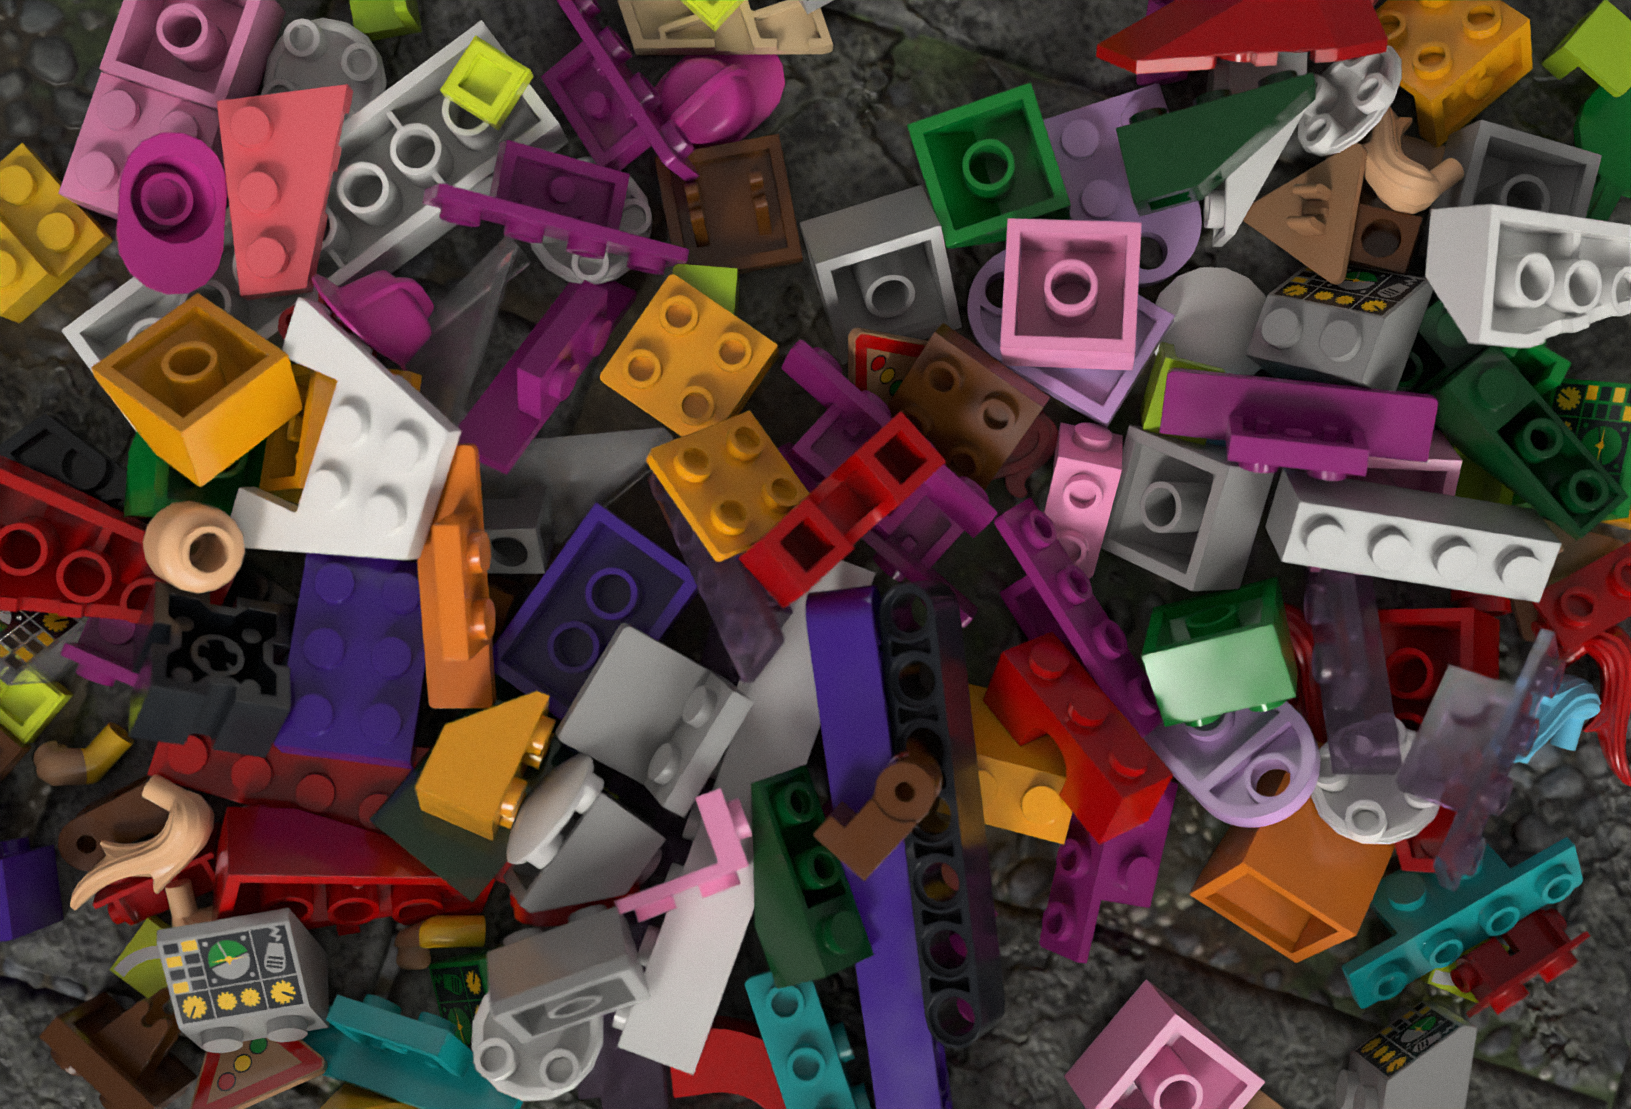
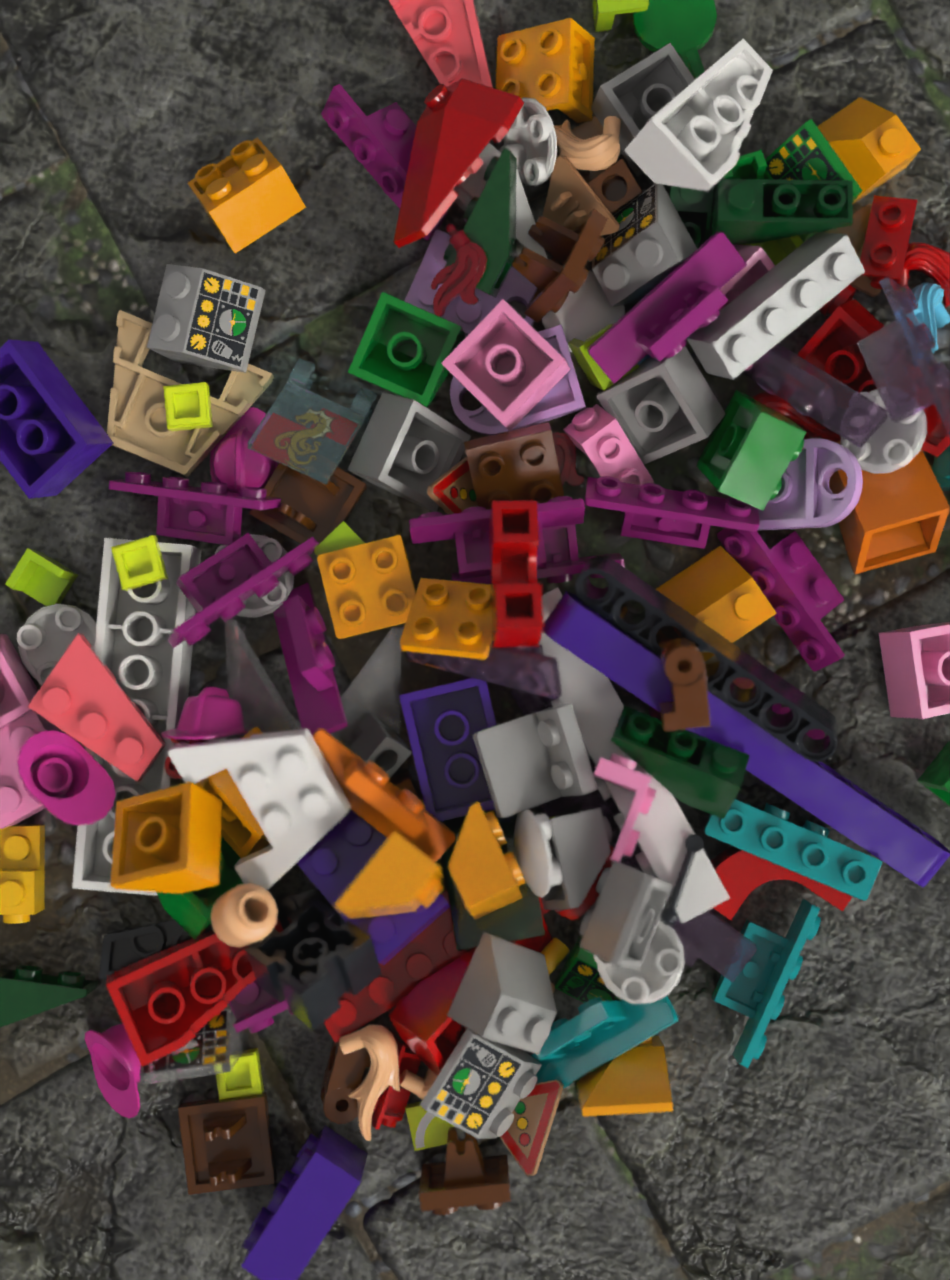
camera: 45 degrees left, 0 degrees up
(81, 766) = (298, 1075): arm -> none
(364, 919) = (506, 995): none -> light grey slope
(371, 677) = (393, 882): none -> light orange slope
(717, 981) = (693, 844): none -> black hinge
(805, 139) = (309, 429): none -> clear light blue flag
(1110, 768) = (758, 554): red arch -> none
(1126, 154) = (461, 276): none -> dark red piece
(1238, 266) = (566, 268): none -> reddish brown plate

